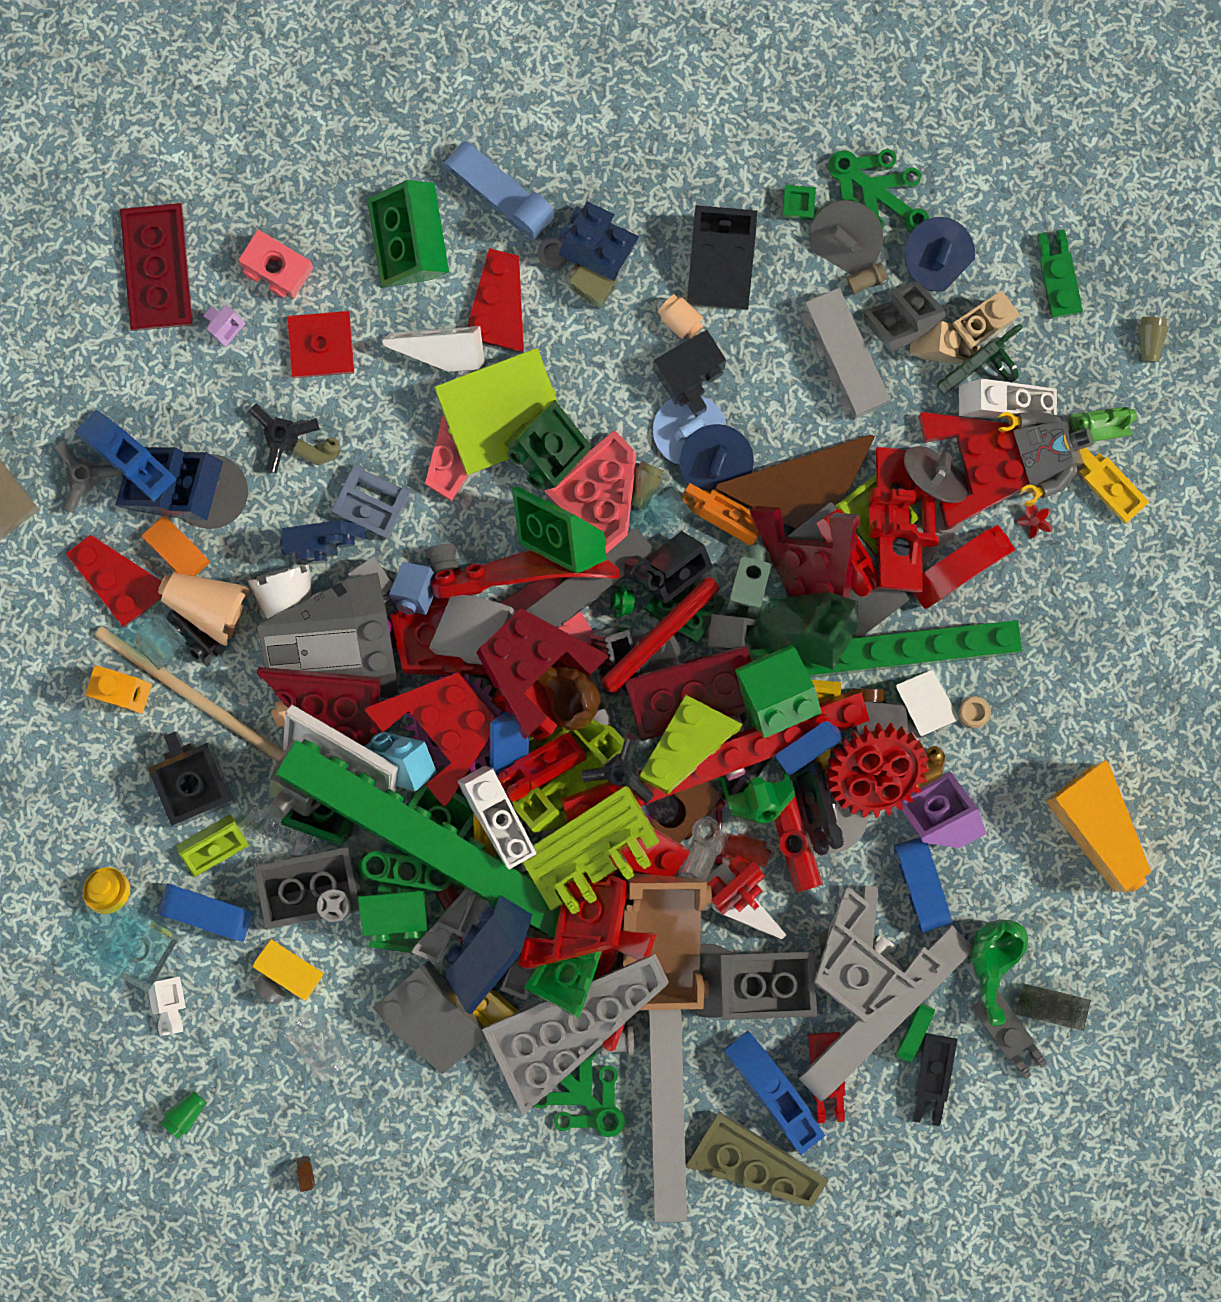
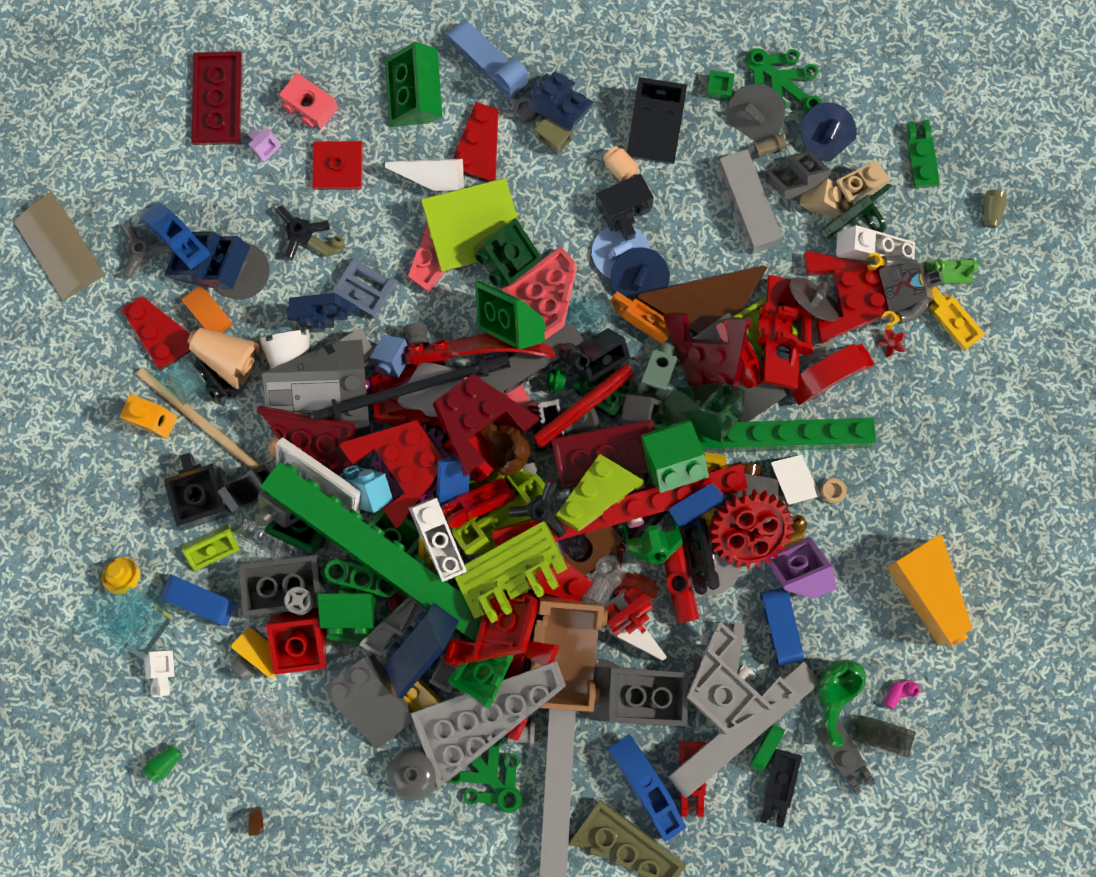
camera: 15 degrees right, 5 degrees down
(251, 770) = (245, 490): none -> black brick
(333, 954) = (296, 642): none -> red slope
(489, 1102) = (412, 775): none -> dark grey cylinder
(531, 598) = (481, 367): none -> black bar
(646, 481) = (582, 289): olive cone -> none
(1071, 949) = (900, 690): none -> dark pink arm

